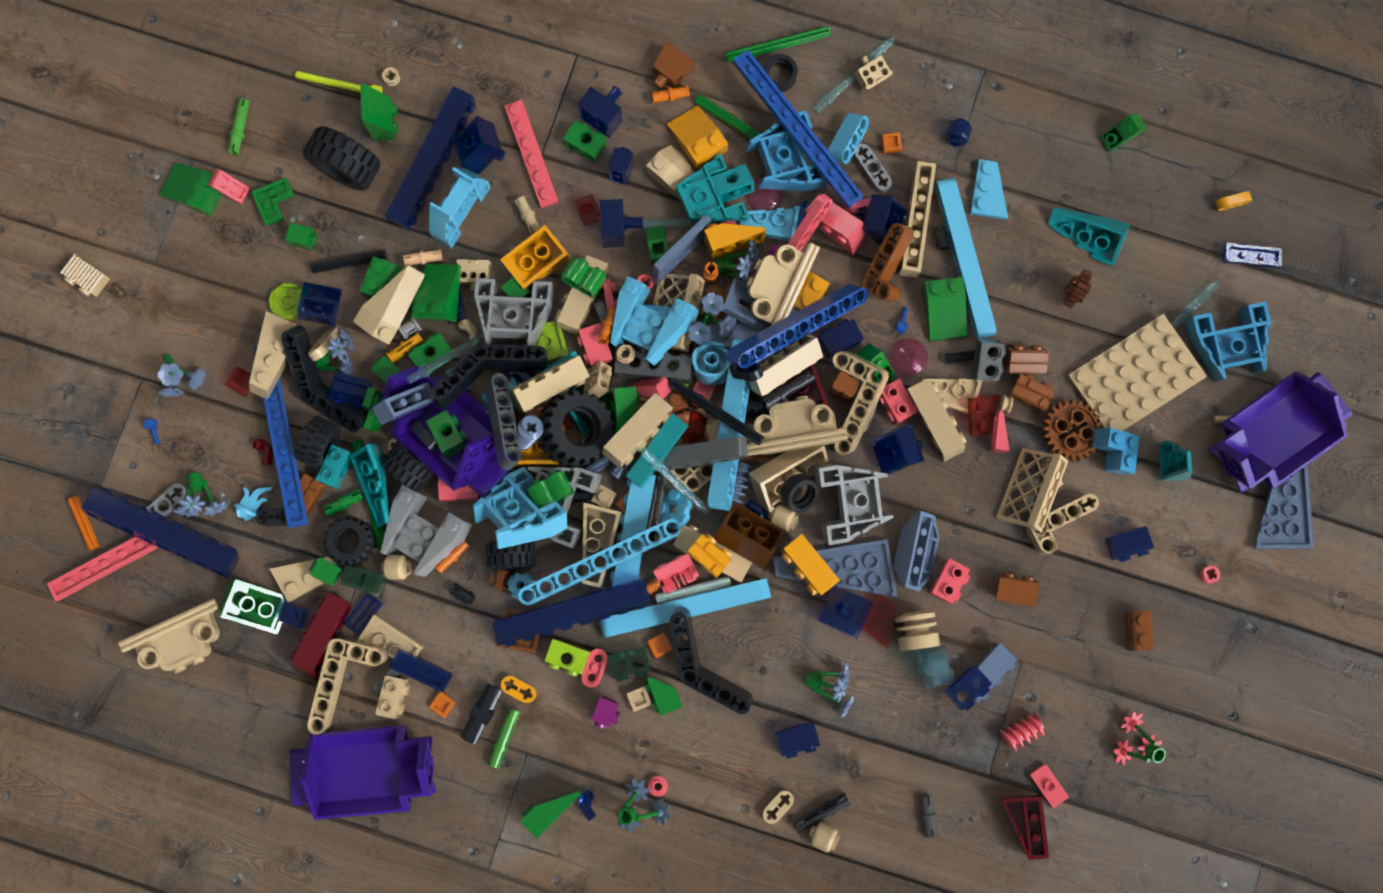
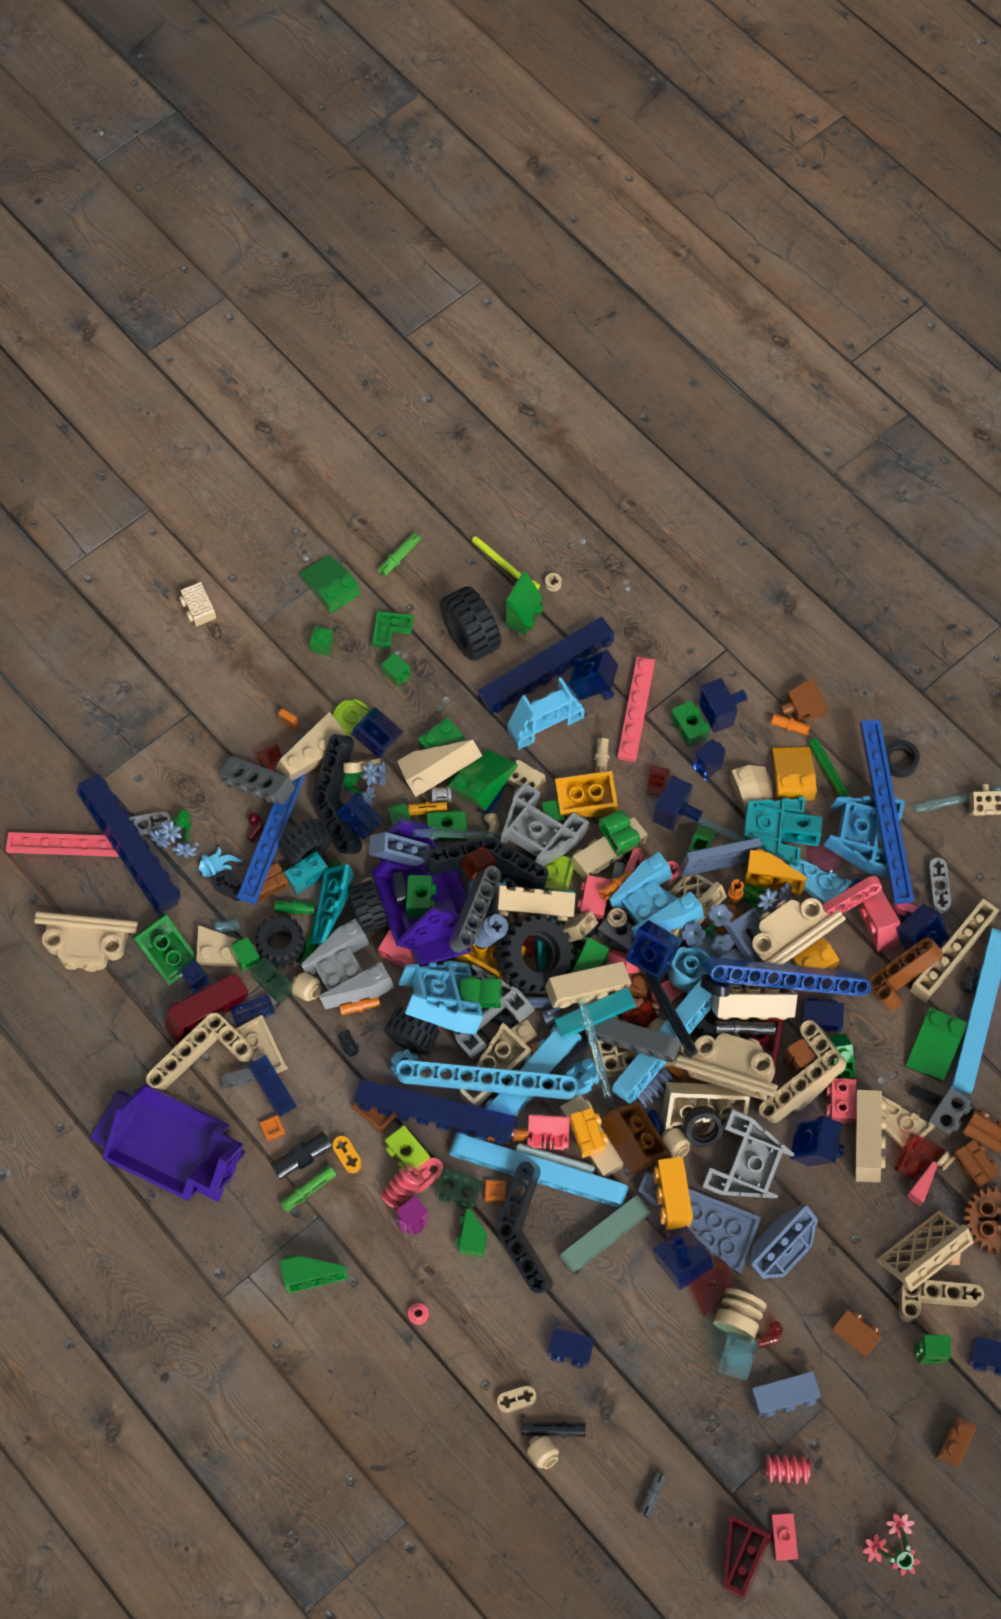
camera: 35 degrees right, 15 degrees down
(83, 523) = (68, 801): orange axle -> none
(152, 424) = (175, 752): blue hand -> none
(171, 375) = (217, 720): sand blue plant -> none
(218, 247) = (322, 641): none -> green brick
(228, 186) = (361, 596): coral plate -> none
(233, 336) = (288, 719): none -> orange tile
(240, 410) = (256, 780): none -> dark grey brick
(295, 553) = (226, 926): none -> clear light blue pin
(347, 261) = (426, 713): black axle -> none
(371, 399) = (361, 854): green plate -> none
(392, 697) = (234, 1094): tan bracket -> none
(422, 257) = (489, 743): light nougat pin -> none
(479, 375) = (477, 861): none -> clear red panel
(501, 580) = (389, 1050): dark orange tile -> none
(582, 692) = (402, 1186): none -> coral piece
(585, 804) = (344, 1290): clear blue arm -> none
(629, 815) = (377, 1318): plant -> none
(639, 699) = (448, 1226): tan plate -> none
(675, 367) = (653, 949): none -> clear blue brick
(770, 628) = (605, 1234): none -> sand green beam
(781, 43) = (920, 735): green axle -> none
(817, 681) = (621, 1306): plant -> none
(848, 137) = (931, 846): medium azure beam -> none
(891, 143) = (970, 873): orange tile -> none
(902, 326) = (886, 1037): blue hand -> none
(902, 363) = (877, 1078): clear pink dish -> none
(950, 581) = (798, 1290): coral brick -> none
(950, 631) = (773, 1335): none -> clear red arm
(964, 683) = (755, 1385): clear blue brick -> none
(1083, 567) = (933, 1349): none -> green brick

